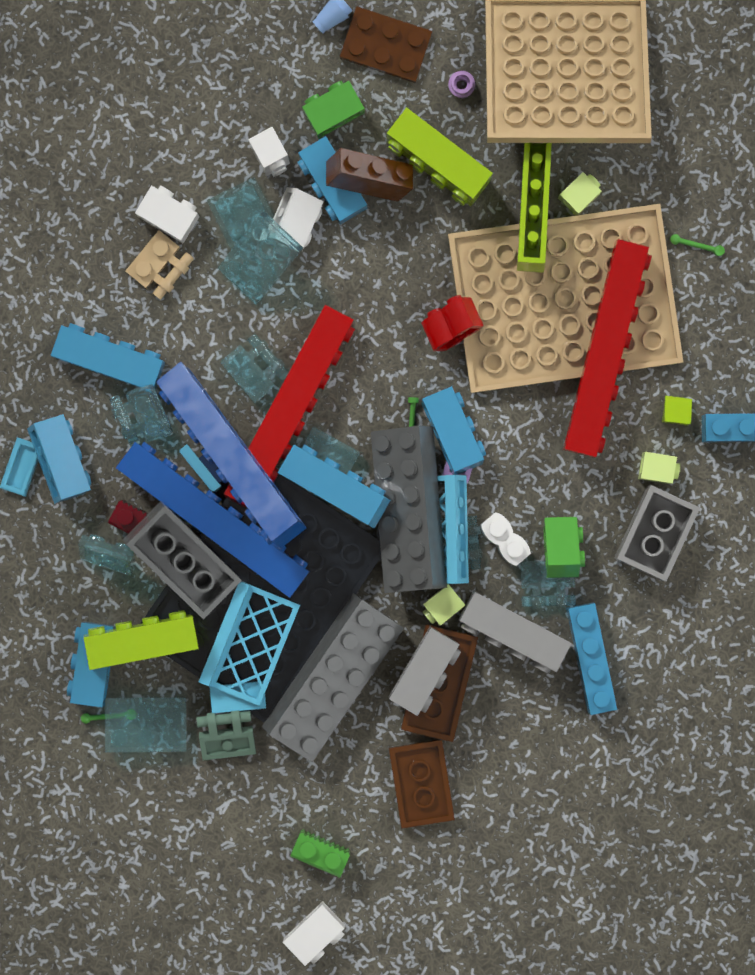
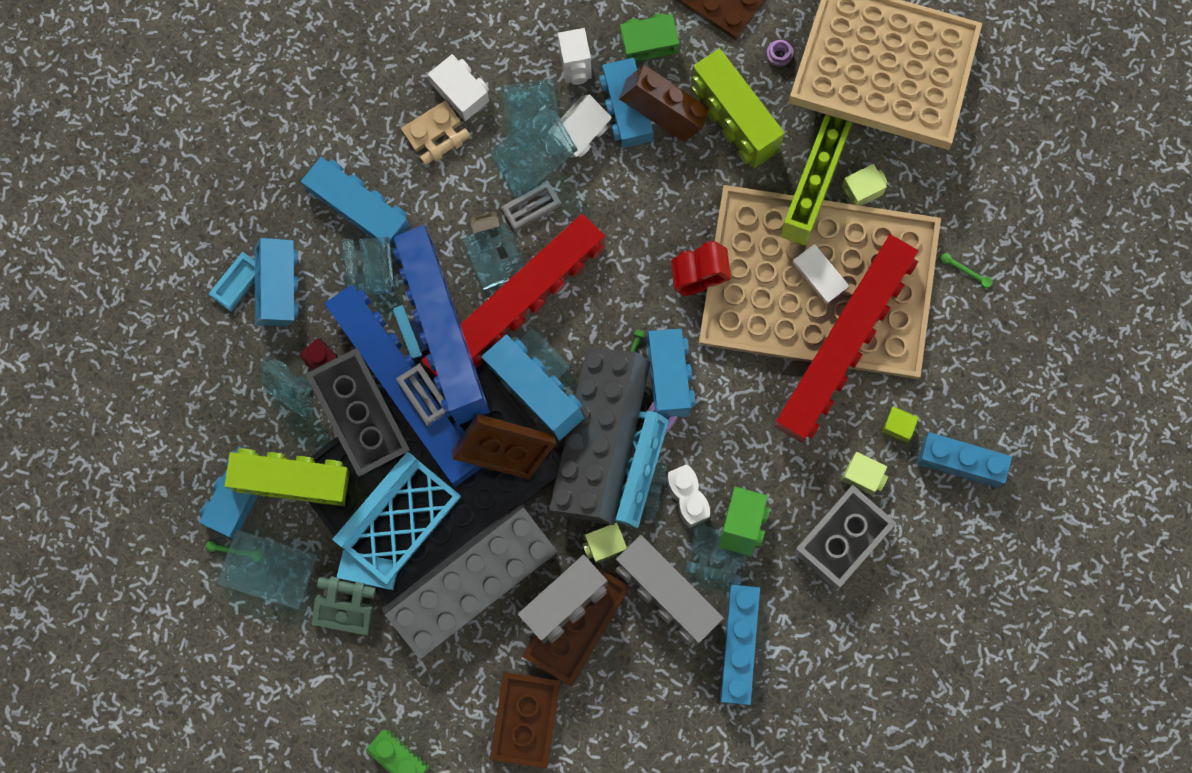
camera: 20 degrees right, 10 degrees down
(235, 339) = (484, 222): none -> dark tan tile
(255, 539) = (437, 414): none -> light grey tile
(258, 325) = (535, 215): none -> light grey tile
(326, 551) = (503, 446): none -> reddish brown plate
(564, 294) = (820, 274): none -> white tile

